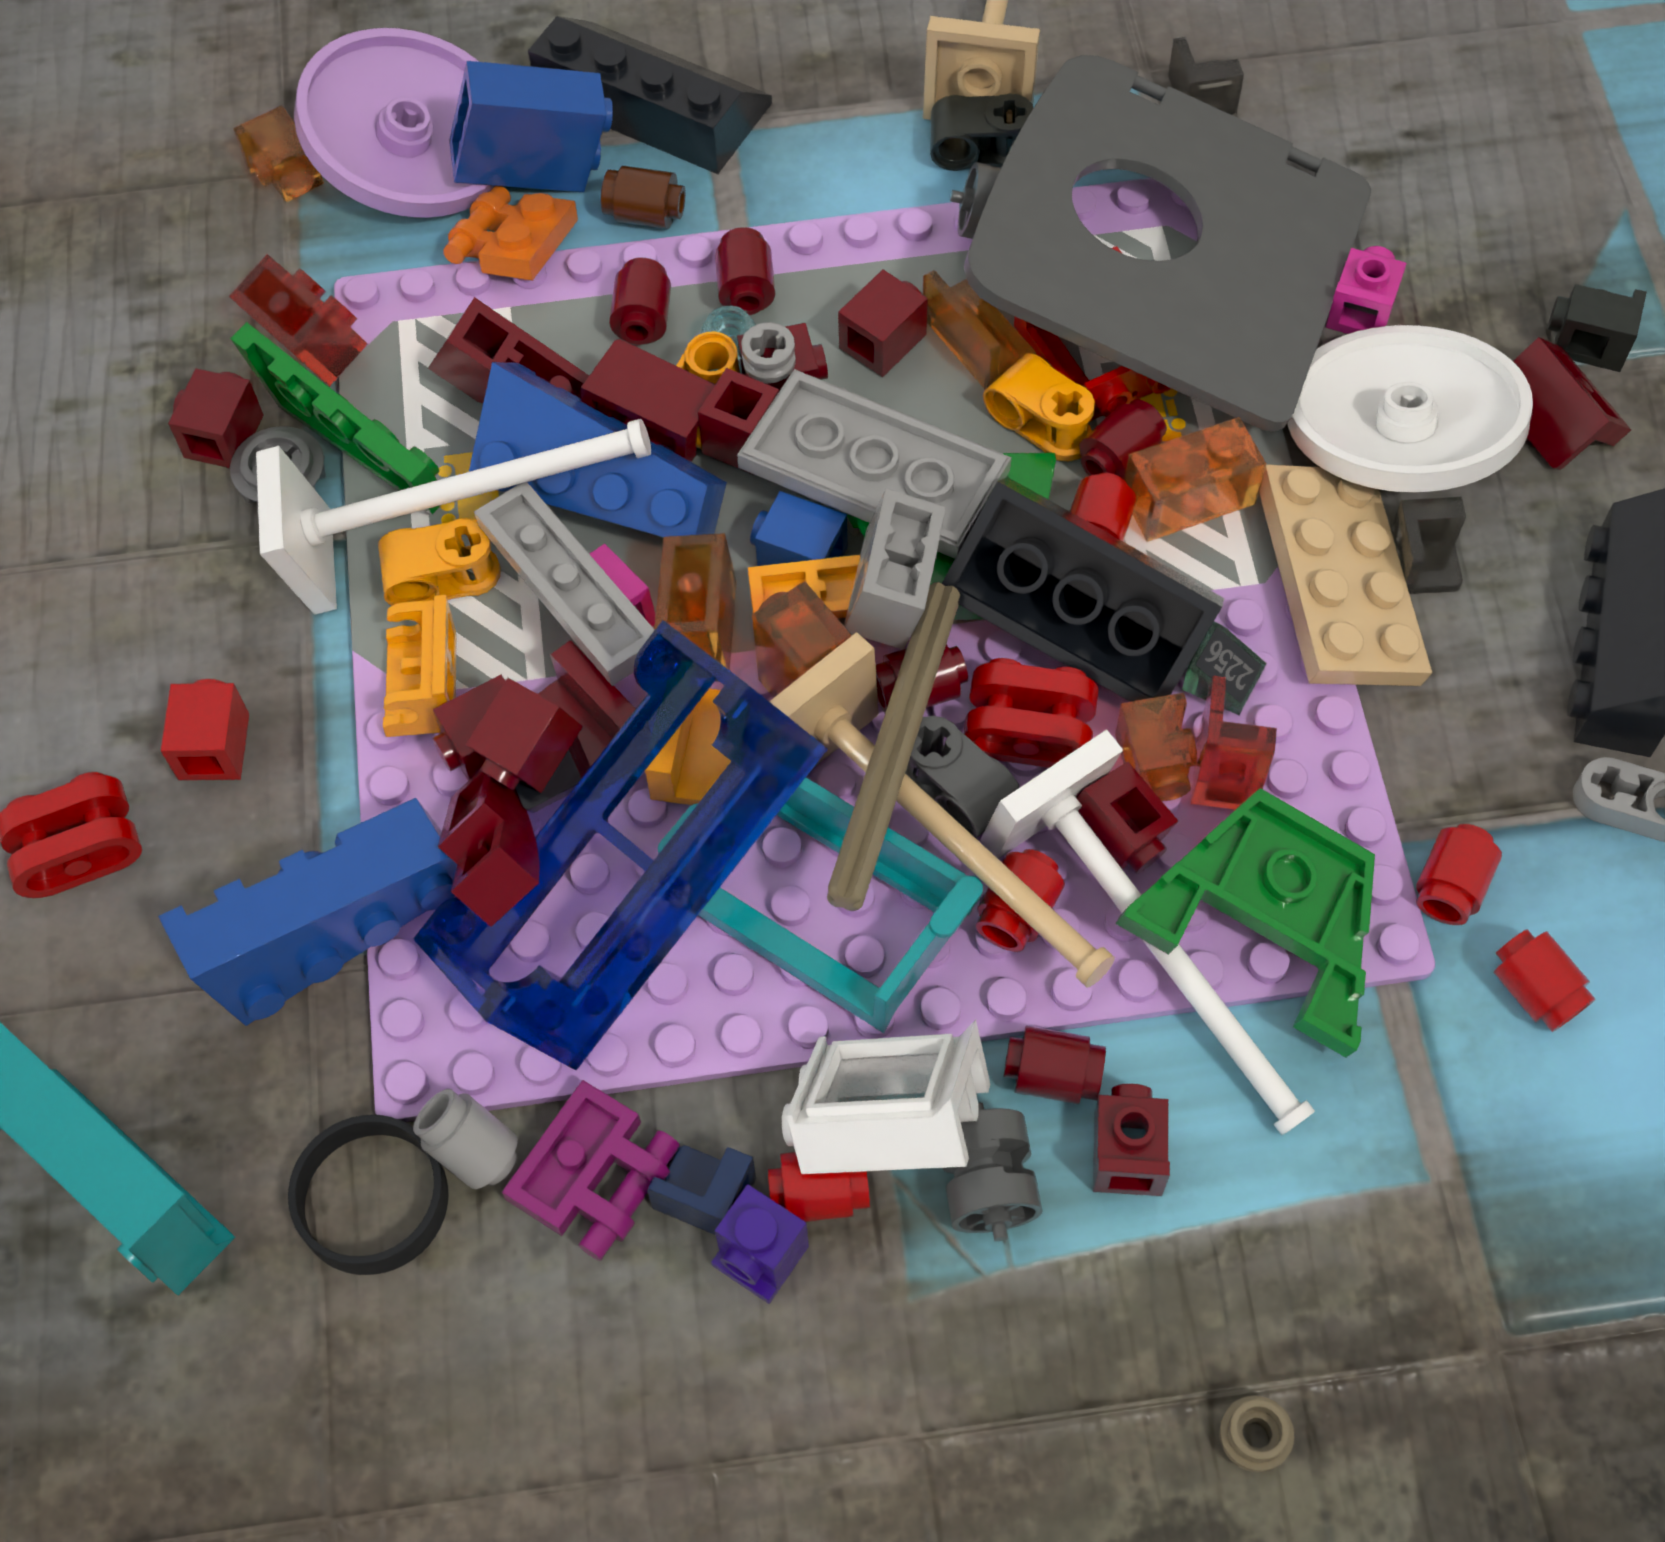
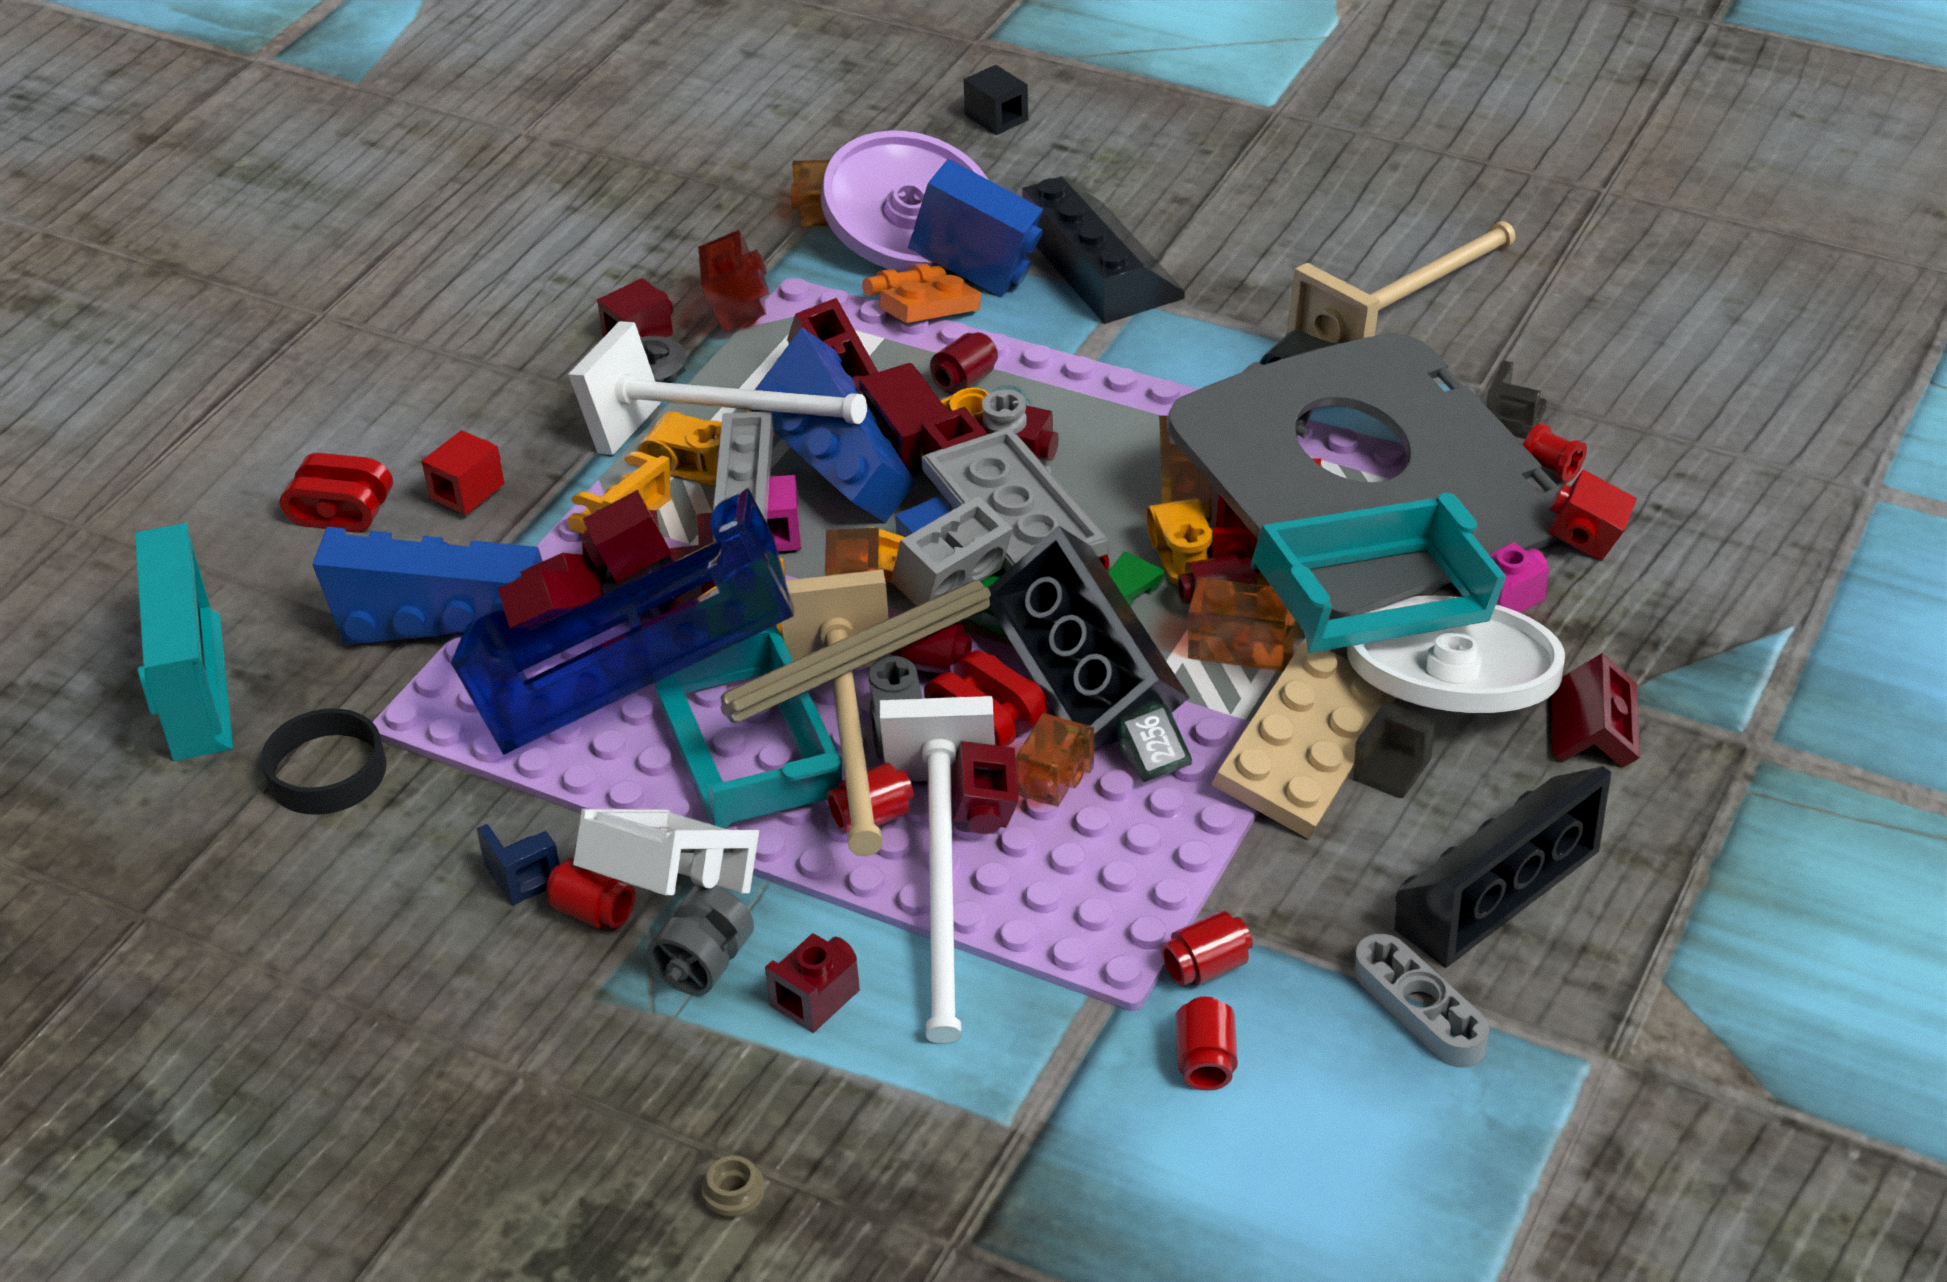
camera: 35 degrees right, 20 degrees down
(332, 415) = (700, 331): green wing -> none
(466, 1139) = (401, 752): light grey brick -> none
(573, 1159) = (459, 803): magenta plate -> none
(642, 196) = (1029, 308): reddish brown brick -> none
(698, 592) = (802, 529): clear orange brick -> none
(745, 270) = (1051, 374): dark red brick -> none
(759, 1243) = (520, 902): dark purple brick -> none
(883, 322) = (1118, 442): dark red brick -> none
(1055, 1065) = (806, 908): dark red brick -> none
(1105, 502) = (1163, 613): red brick -> none
(1230, 755) = (1085, 774): clear red panel -> none
(1286, 883) = (1060, 874): green wing -> none
(1288, 119) = (1556, 452): none -> red bush
(1328, 284) = (1437, 525): none -> teal piece
(1389, 179) = (1590, 514): none -> red brick
(1597, 325) = (1676, 678): pearl dark grey brick -> none

